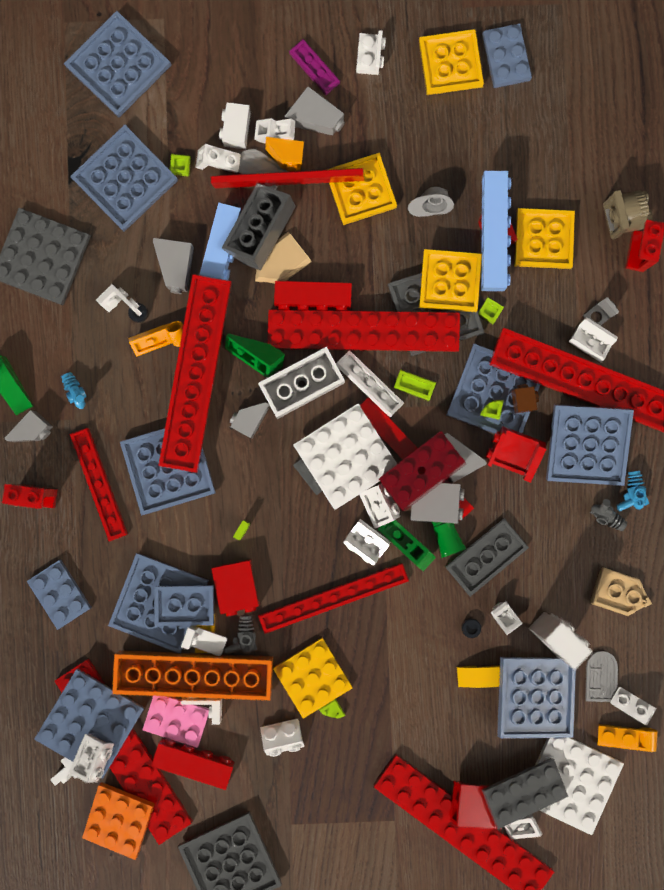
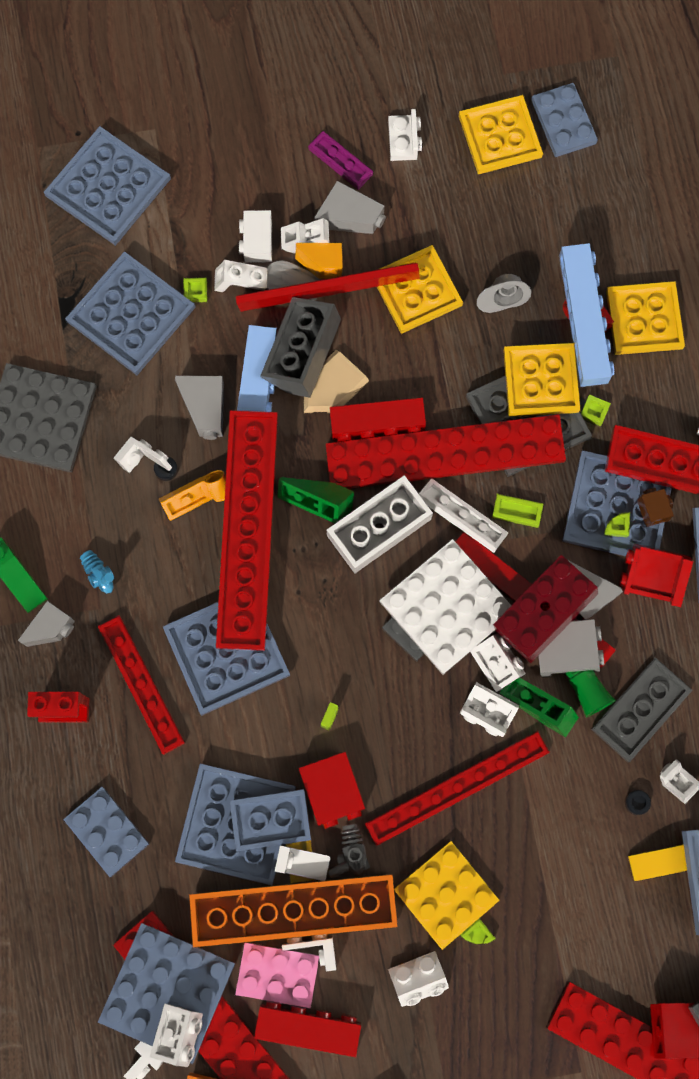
camera: 10 degrees left, 10 degrees down
(249, 419) = (320, 577): light grey slope -> none

